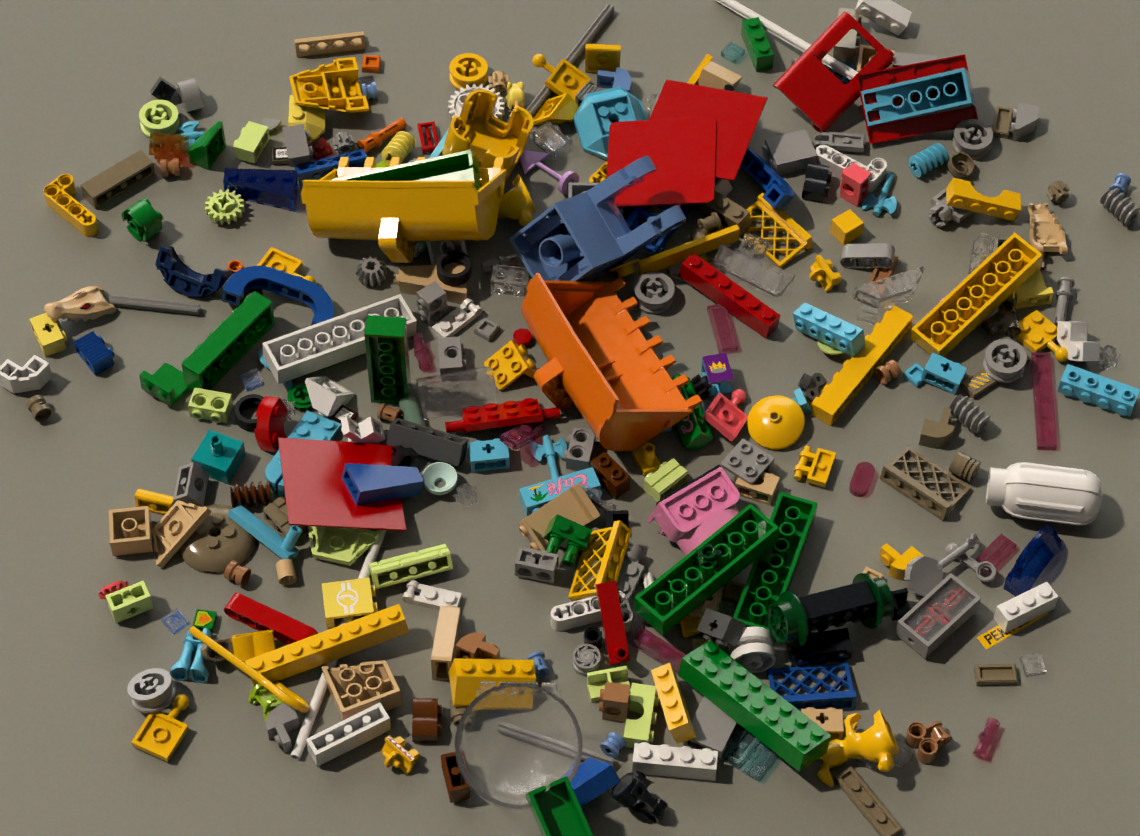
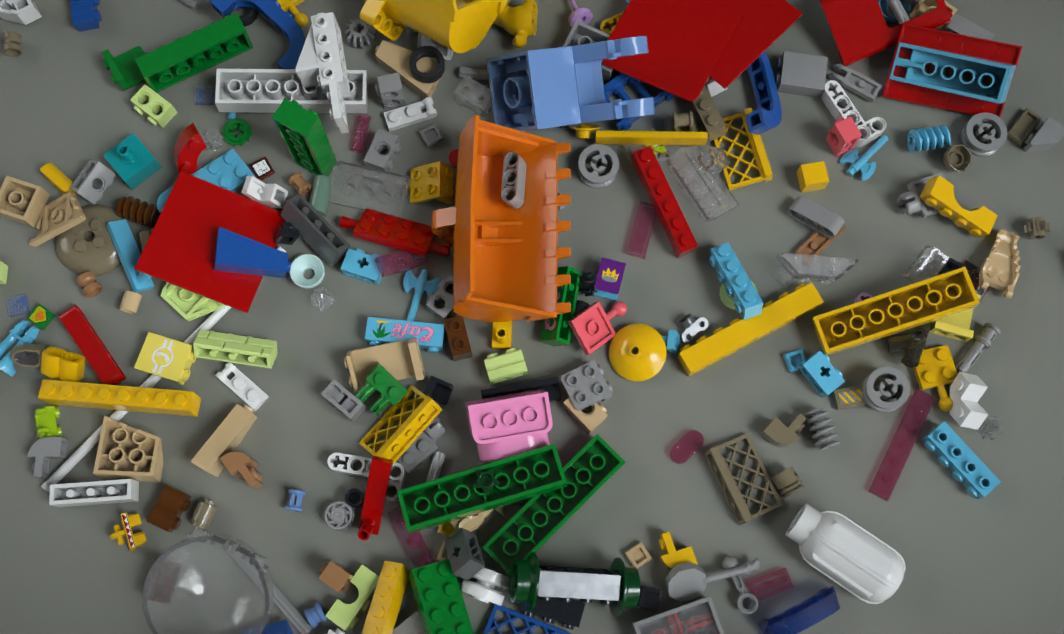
camera: 25 degrees right, 20 degrees up
(242, 404) = (179, 118): black tyre -> none
(277, 689) = (46, 421): yellow piece -> none
(327, 395) = (256, 140): white slope -> none
(367, 292) = (324, 65): none -> white wedge
(467, 675) = (240, 505): yellow slope -> none
(587, 327) = (513, 168): none -> light grey beam
(595, 496) = (427, 355): clear slope -> none
(597, 679) = (345, 551): yellowish green panel -> none
(815, 182) = (809, 115): black brick -> none
(820, 468) = (654, 418): yellow plate -> none
(823, 273) = (763, 216): yellow hips -> none
(887, 372) = (769, 347): medium nougat wheel -> none

